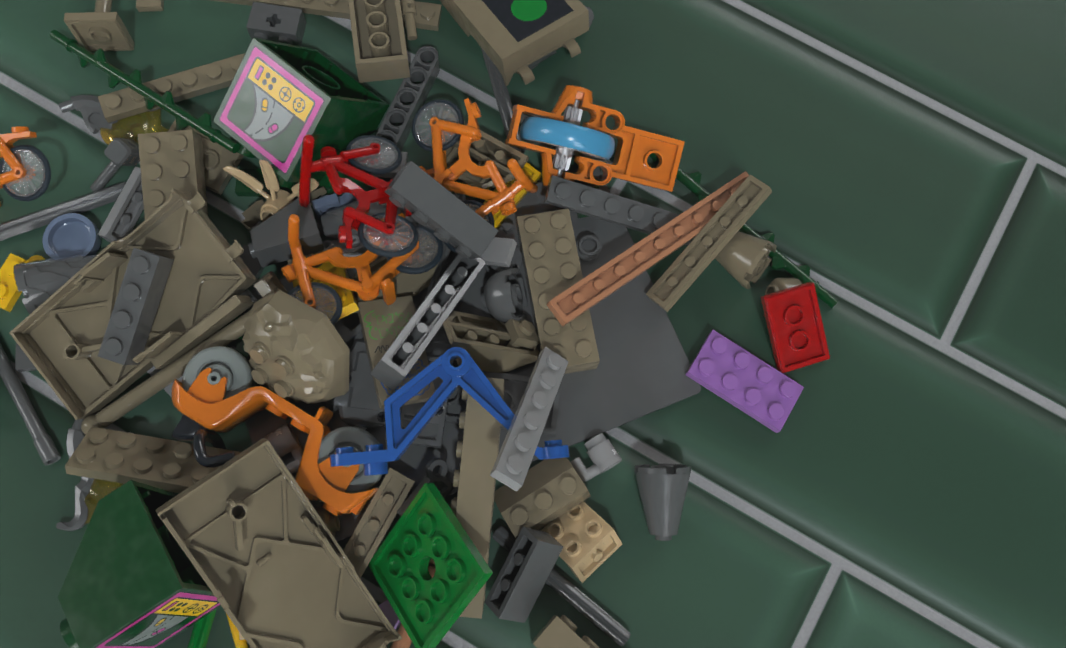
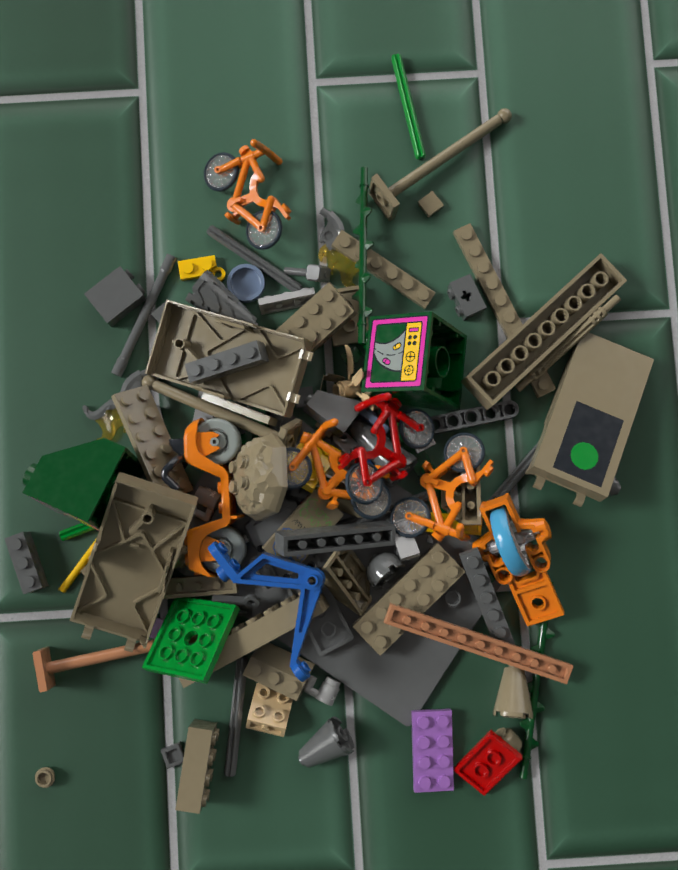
camera: 60 degrees right, 10 degrees up
(441, 211) = (402, 502): dark grey brick -> none
(522, 333) = (367, 596): dark tan plate -> none
(523, 575) = (226, 693): dark grey brick -> none
(529, 420) = (309, 645): light grey plate -> none
(709, 242) = (504, 675): dark tan plate -> none

